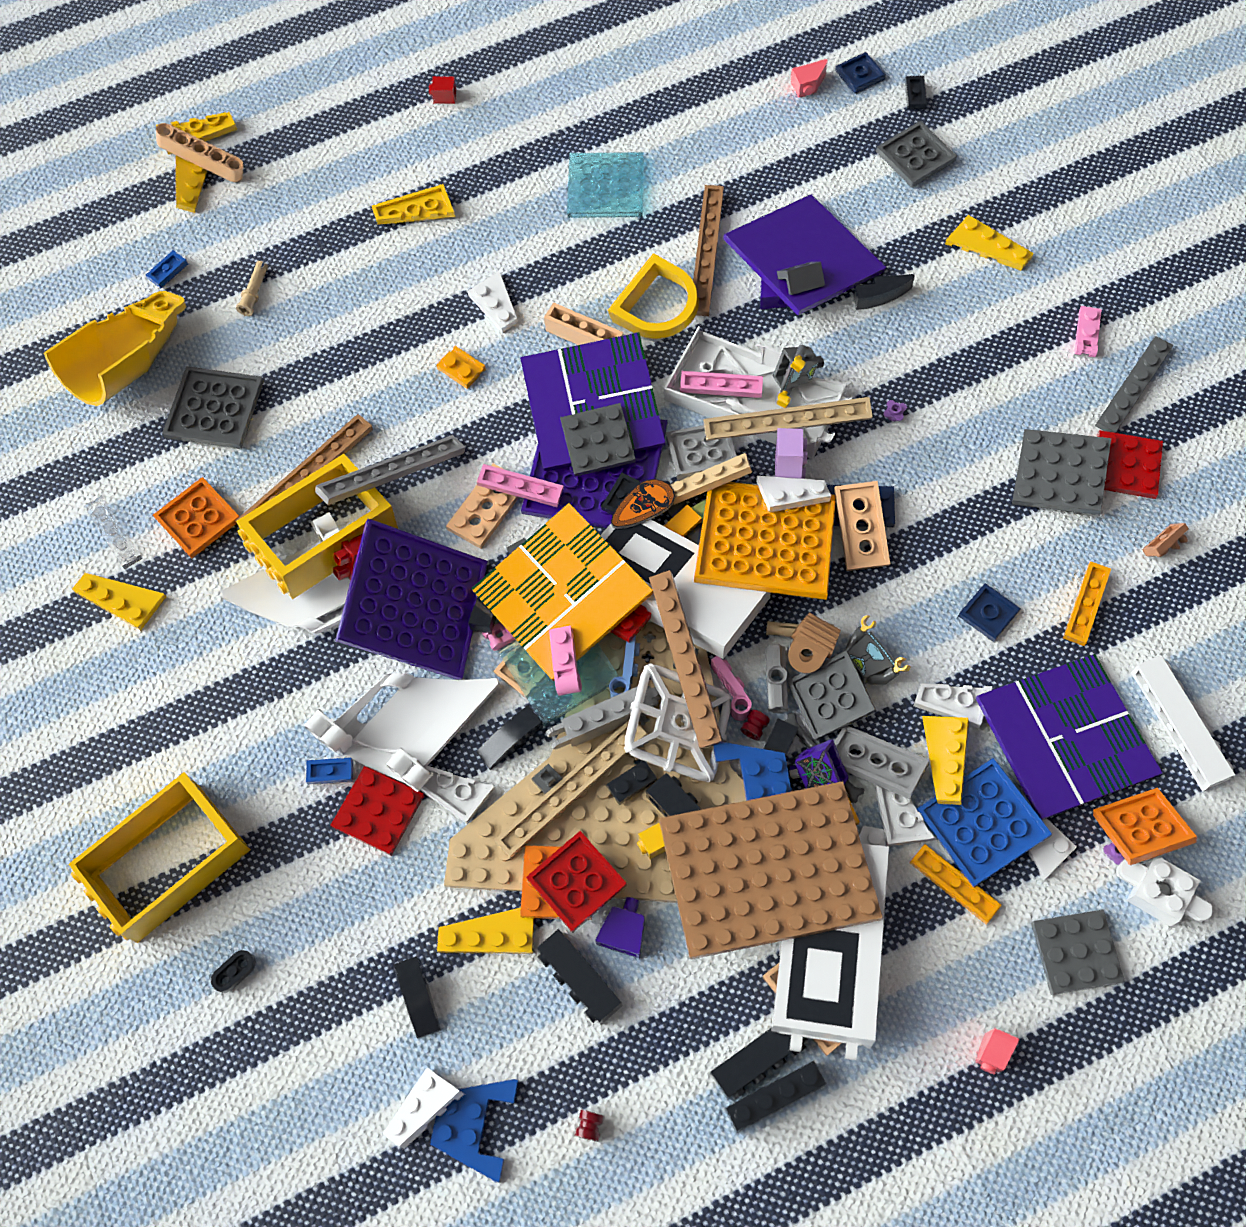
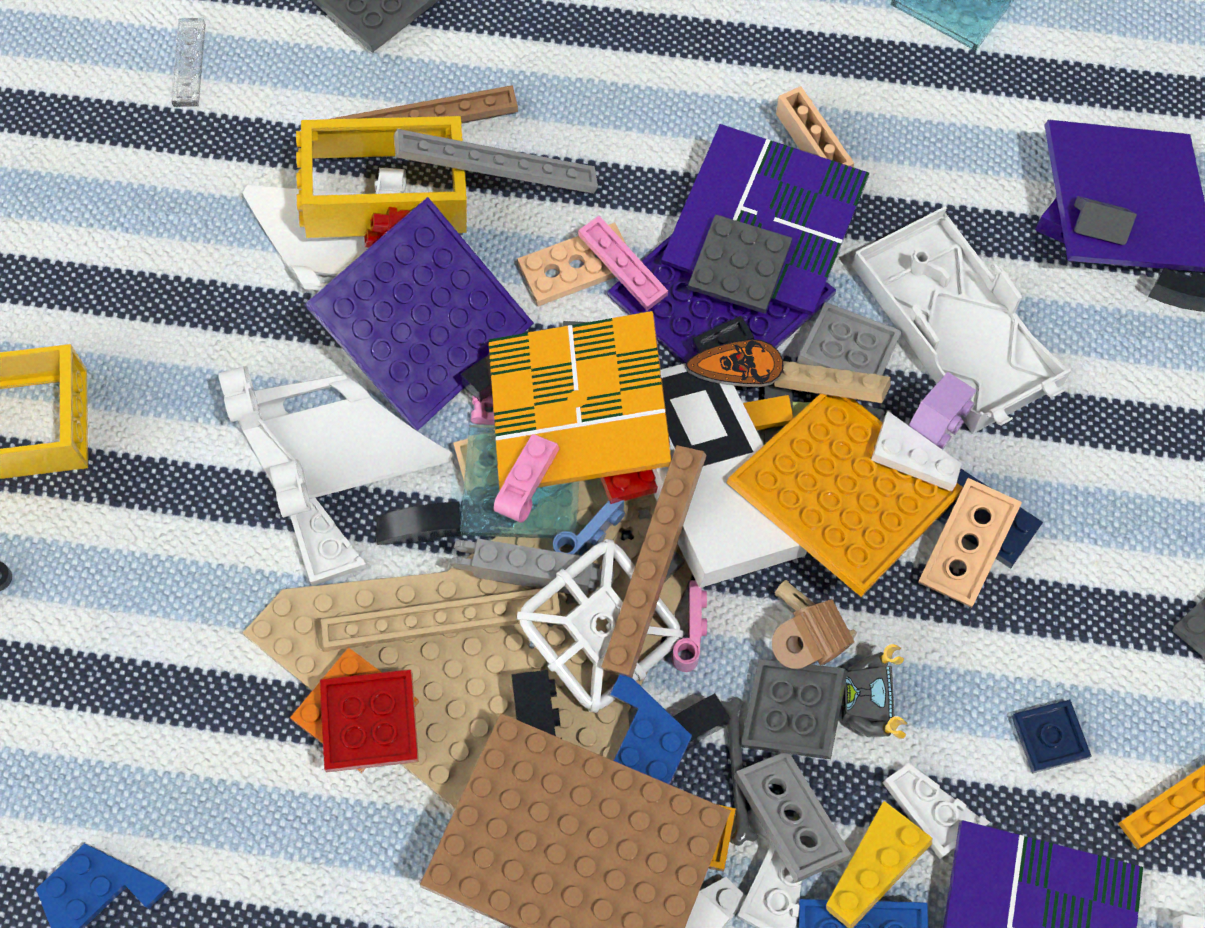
camera: 30 degrees right, 0 degrees up
(122, 600) = (150, 138): yellow wing -> none
(196, 517) = (277, 95): orange plate -> none
(329, 771) = (217, 438): blue plate -> none
(377, 810) = (234, 511): red plate -> none
(417, 997) = (132, 729): black slope -> none
(423, 1104) = (56, 843): white wing -> none
(460, 367) = (656, 100): light orange plate -> none
(493, 933) = (250, 715): yellow wing -> none
(494, 302) = (743, 50): white wing -> none
(546, 779) = (422, 591): dark grey tile -> none
(579, 976) = (305, 825): black brick -> none
(623, 929) = (386, 806): dark purple torso -> none
(631, 782) = (507, 656): black plate -> none
(636, 288) = (907, 125): yellow window -> none
(651, 841) = (477, 732): yellow brick -> none
(707, 246) = (1019, 129): medium nougat plate -> none
(721, 384) = (925, 286): bright pink plate -> none
(755, 724) = (687, 684): dark red wheel -> none
(776, 667) = (738, 662): light grey piece -> none
(791, 417) = (970, 369): tan plate -> none
(795, 368) = (1020, 318): dark grey torso -> none
(819, 766) = (722, 778): torso -> none
(894, 415) = (1105, 444): medium lavender plate -> none

